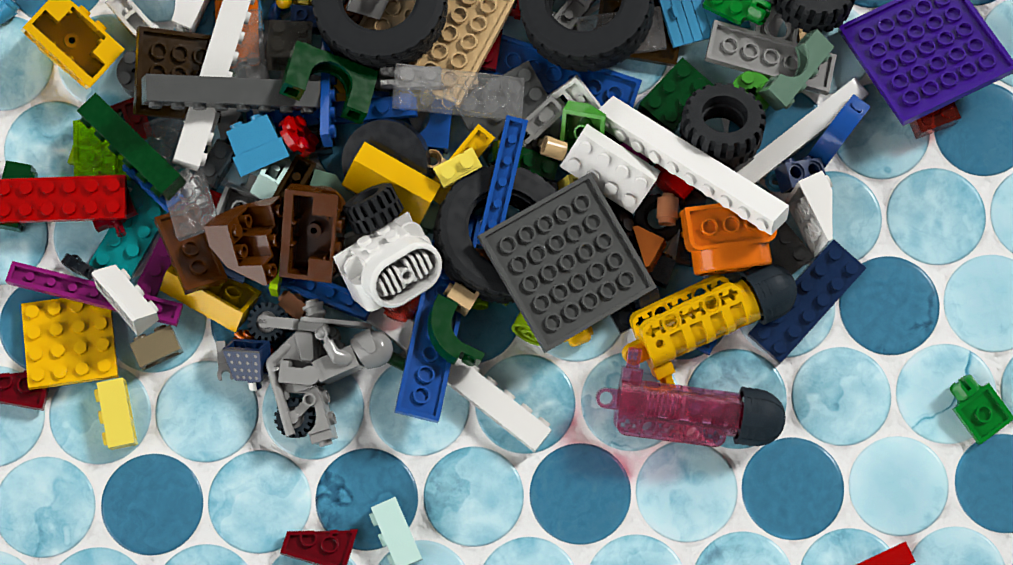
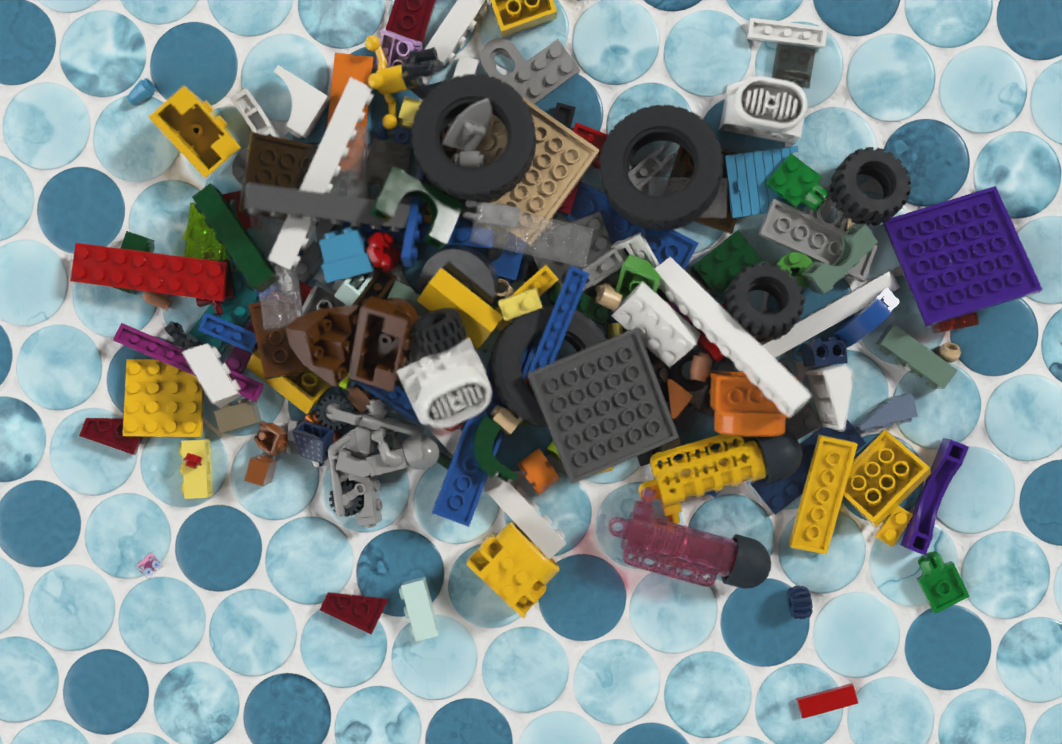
camera: 15 degrees right, 10 degrees up
(48, 232) = (157, 299): none -> nougat cone
(74, 536) = (149, 565): none -> clear tile
(113, 400) = (192, 460): none -> red plate
(135, 253) = (228, 332): none -> blue plate
(192, 400) = (261, 469): none -> dark orange brick
(198, 365) = (271, 438): none -> dark orange hand
(378, 22) = (470, 159): none -> light grey brick
(457, 136) = (526, 270): none -> black plate
(497, 463) = (513, 567): none -> yellow brick
(508, 352) = (539, 471): none -> orange brick
(826, 454) = (799, 602): none -> dark blue gear
(828, 330) = (822, 494): none -> yellow plate
(890, 303) = (883, 478): none -> yellow slope
(891, 225) = (893, 409): none -> sand blue slope
(902, 166) = (916, 357): none -> sand green brick
(915, 354) = (894, 526): none -> yellow plate
(937, 155) = (949, 352): none -> tan piece
(955, 288) = (945, 465): none -> dark purple arch

